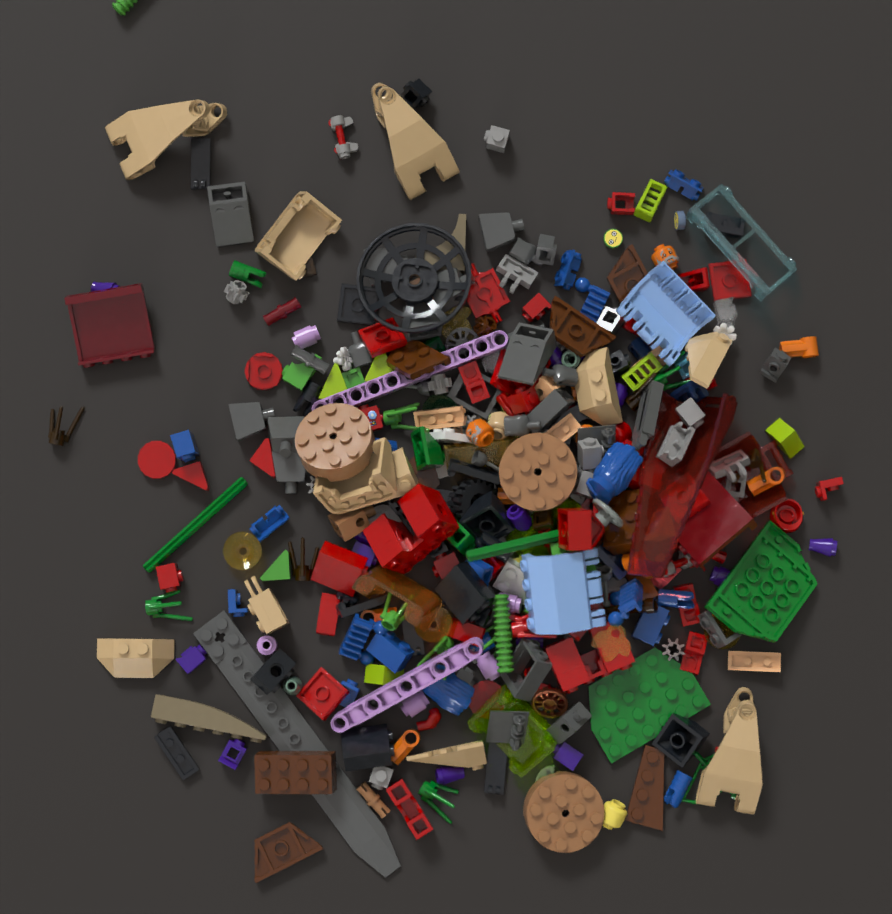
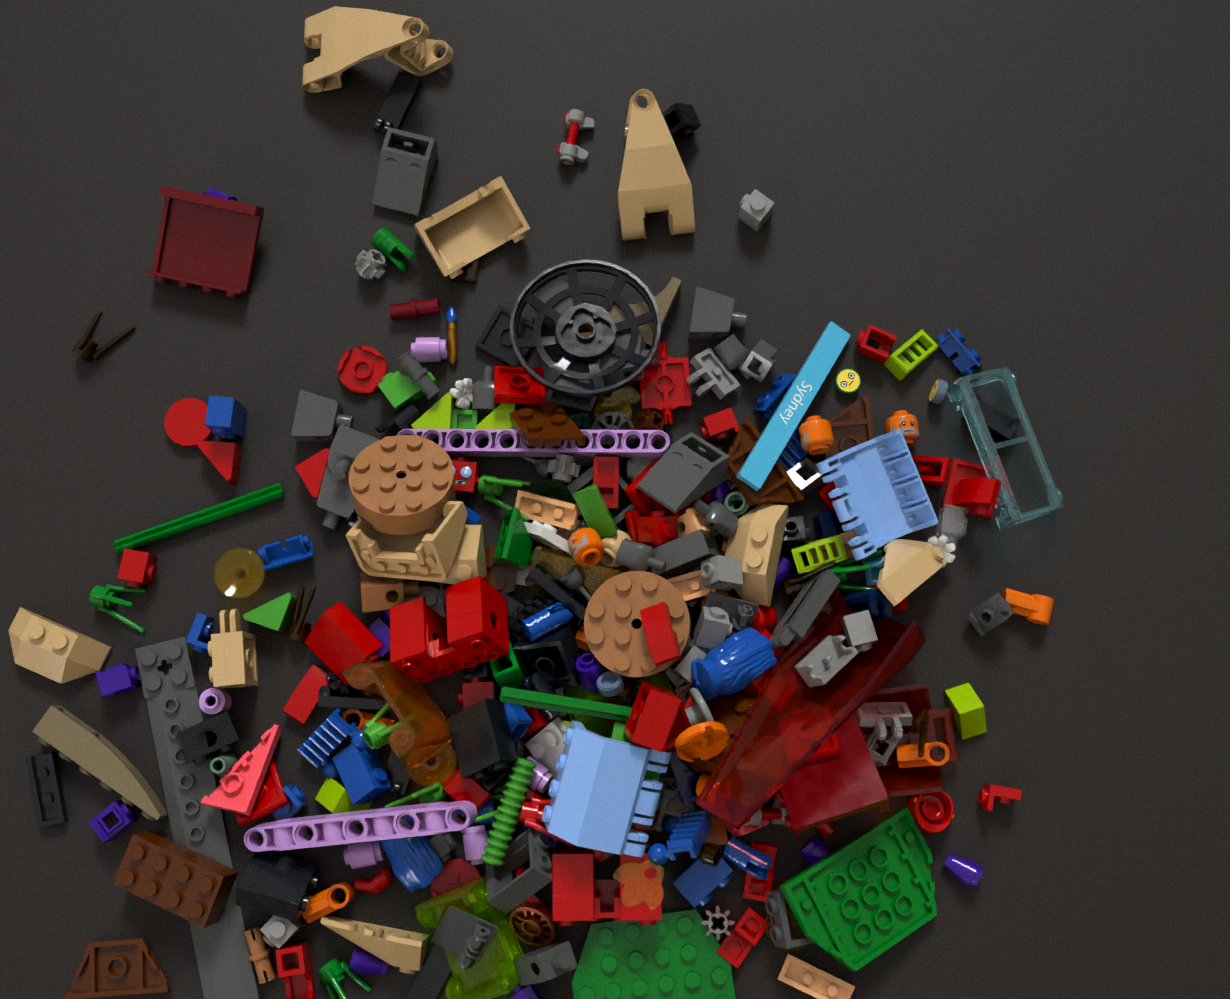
camera: 25 degrees right, 5 degrees down
(312, 691) = (243, 782): none -> coral wing
(317, 320) = (451, 319): none -> pearl gold piece
(474, 495) = (545, 621): none -> blue hinge
(475, 405) = (595, 511): none -> bright green slope
(536, 520) = (610, 684): none -> sand blue tile
(557, 472) = (659, 633): none -> red slope
(581, 413) = (721, 573): none -> light grey brick
(582, 273) = (793, 406): none -> medium azure tile
(606, 288) = (816, 435): none -> orange head
(615, 531) = (702, 741): none -> orange tile
(734, 283) = (977, 492): none -> red slope

